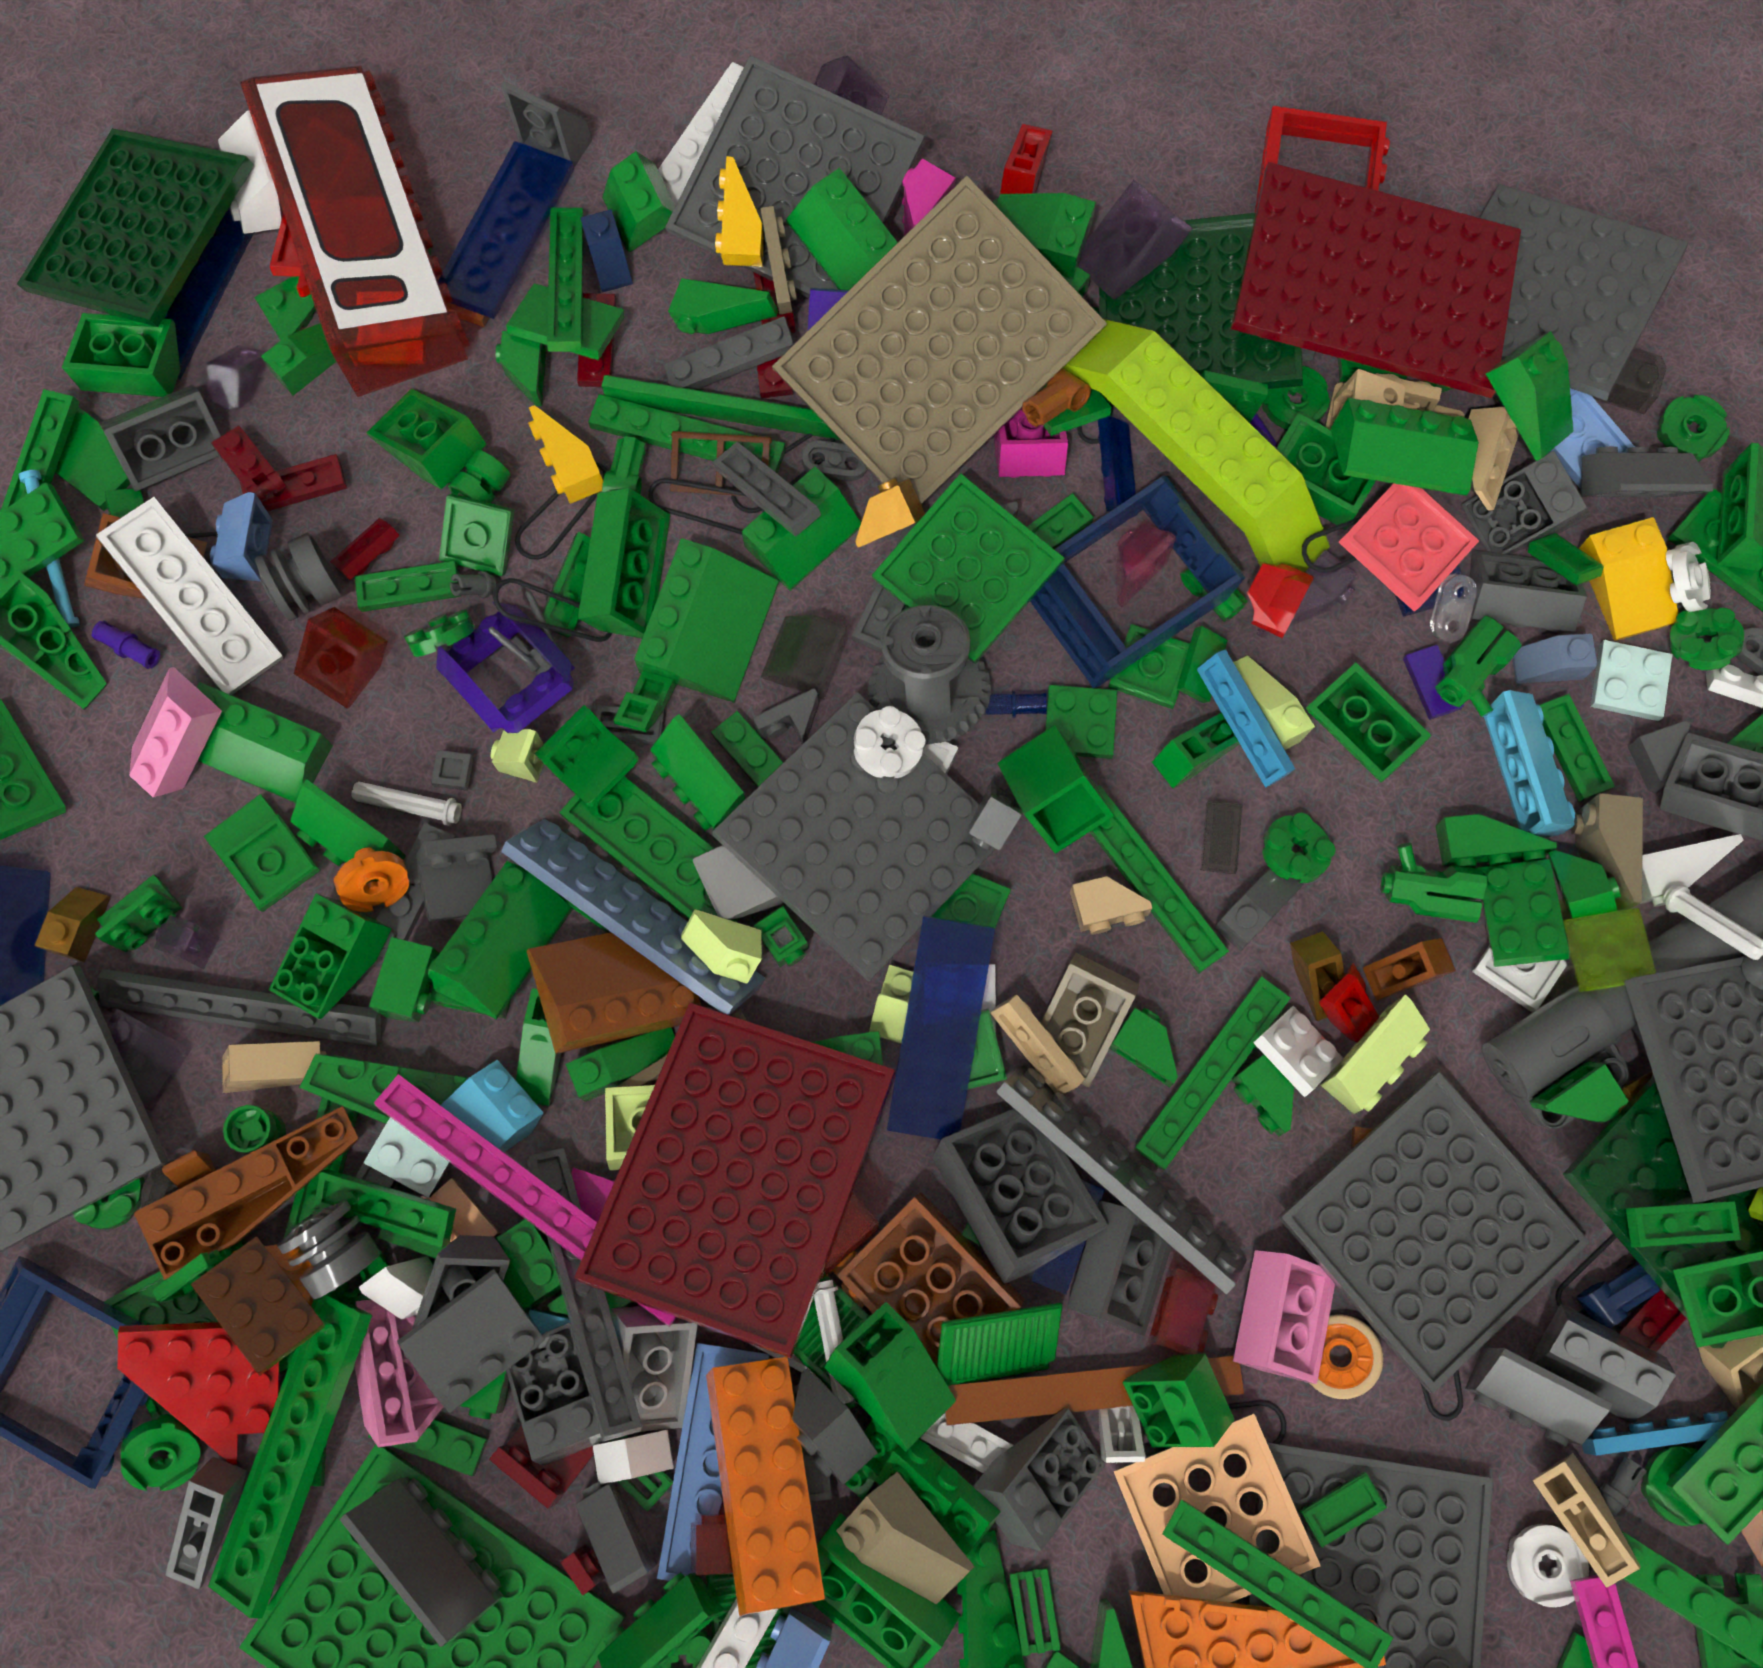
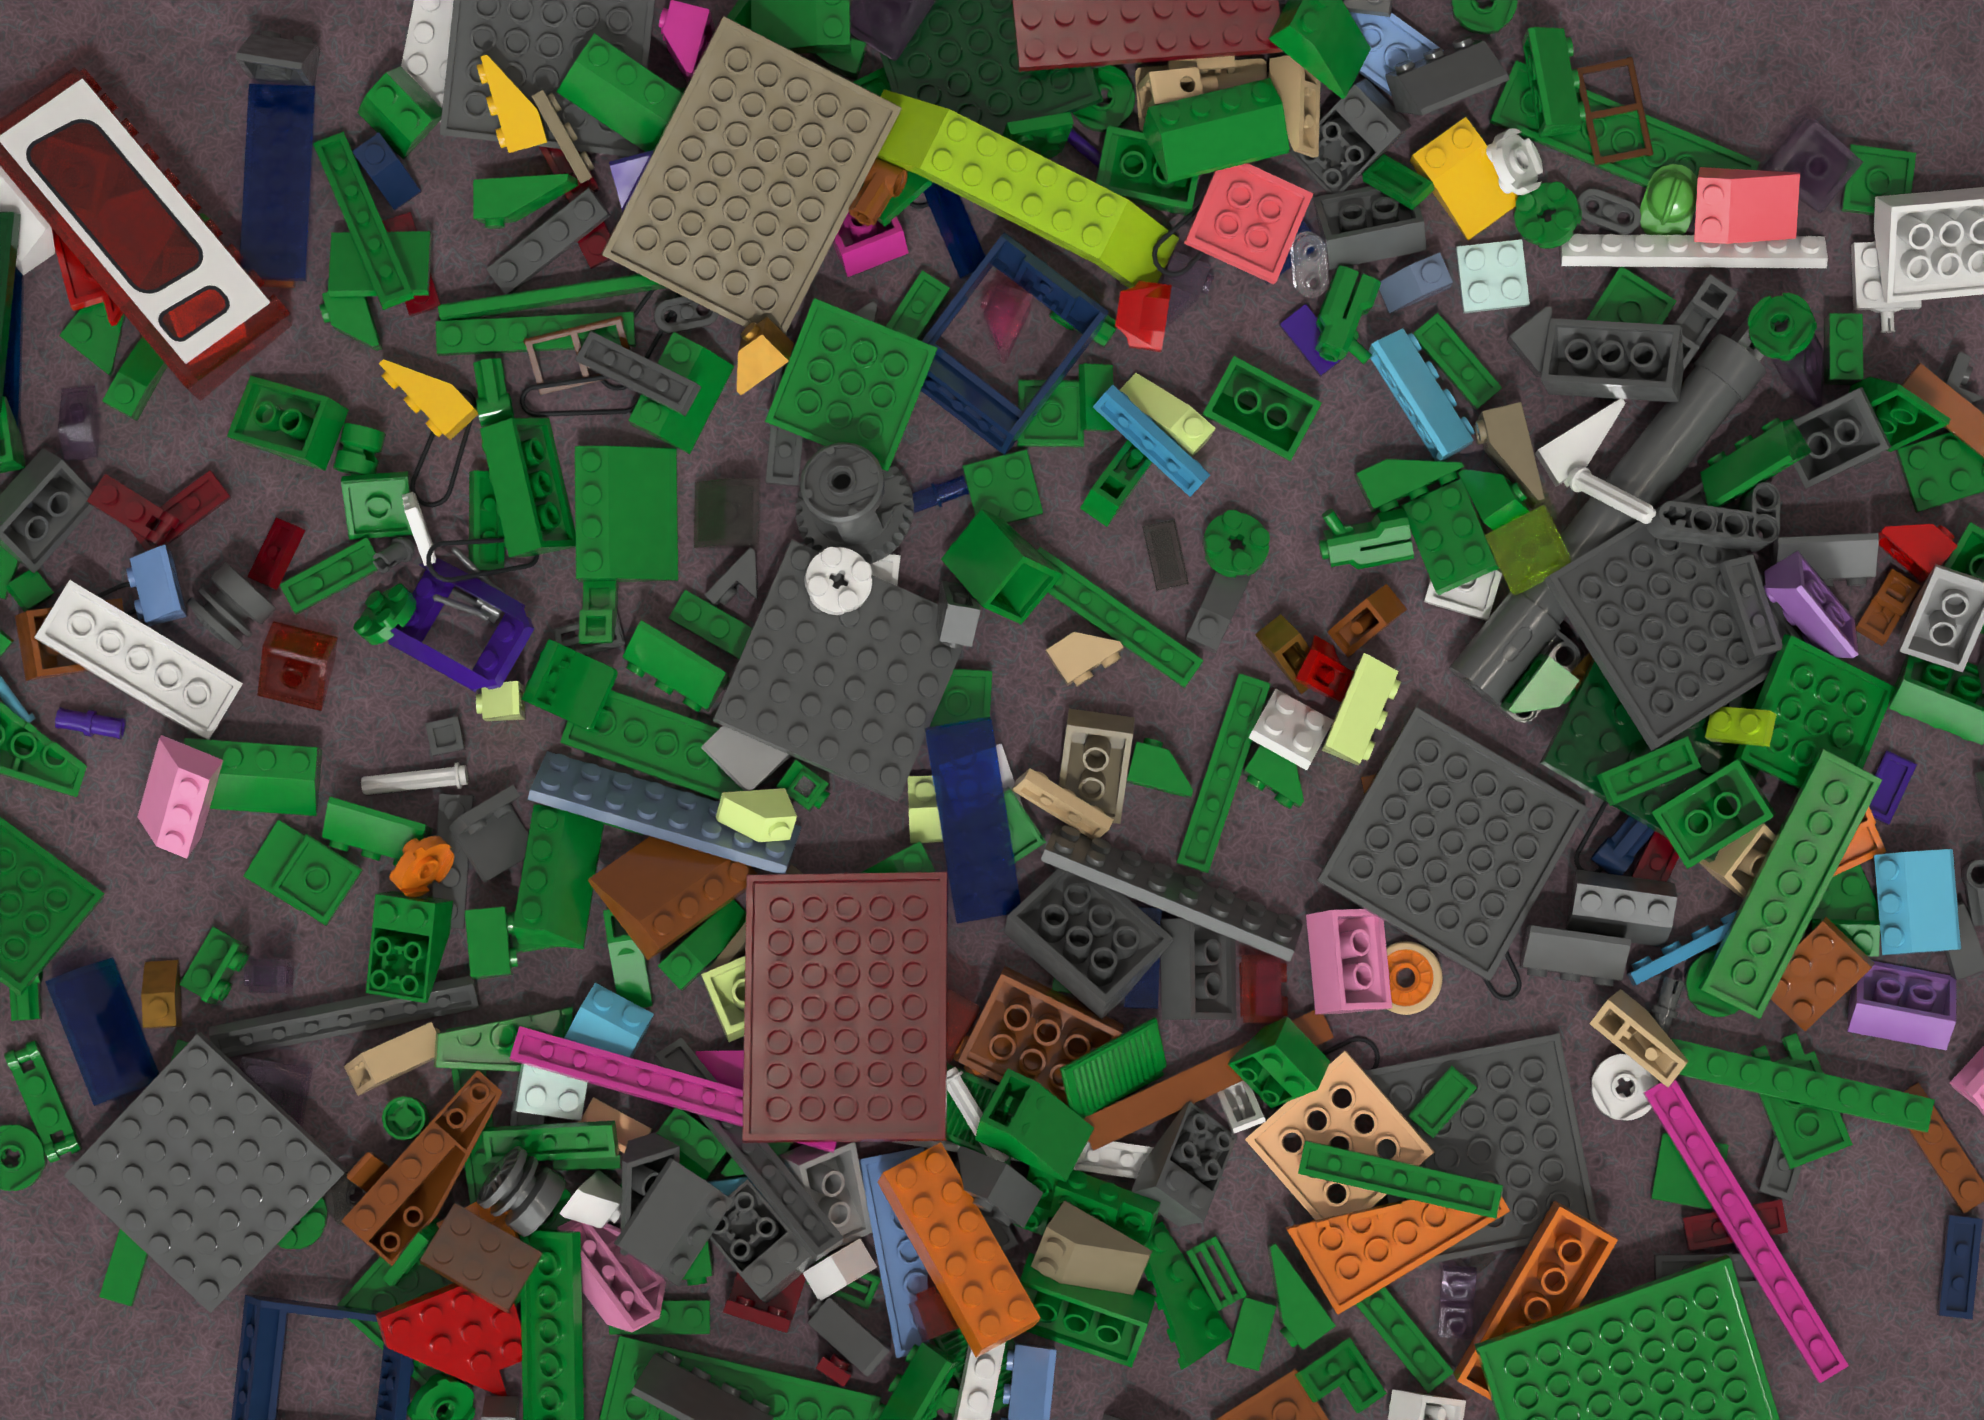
camera: 20 degrees left, 10 degrees up
(504, 563) = (418, 526): none -> white tile

